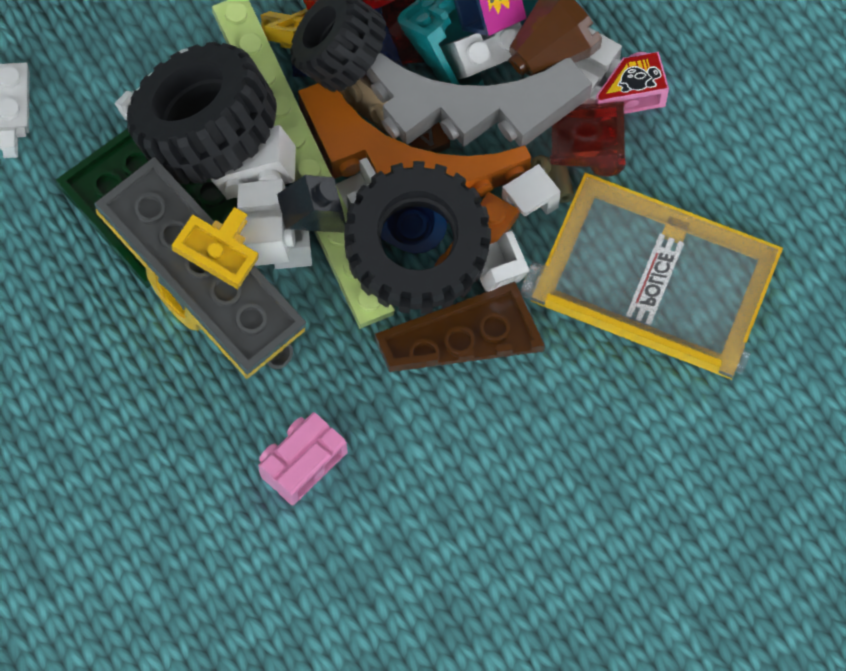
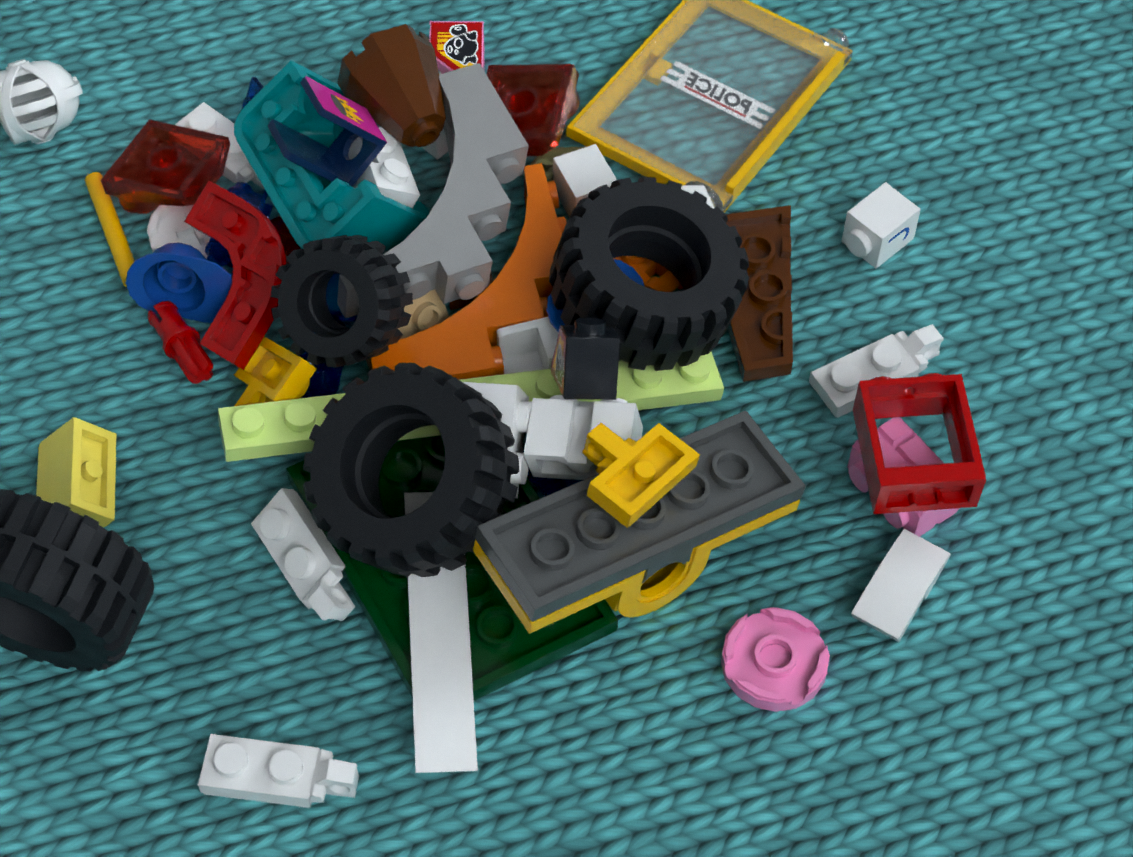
camera: 80 degrees left, 10 degrees down
(73, 183) = (441, 667): none -> white sticker
(142, 393) = (775, 659): none -> bright pink tile
(214, 466) = (900, 584): none -> white slope
(299, 415) = (923, 485): none -> red window
(405, 431) = (890, 357): none -> white hinge
(541, 415) = (880, 225): none -> white brick

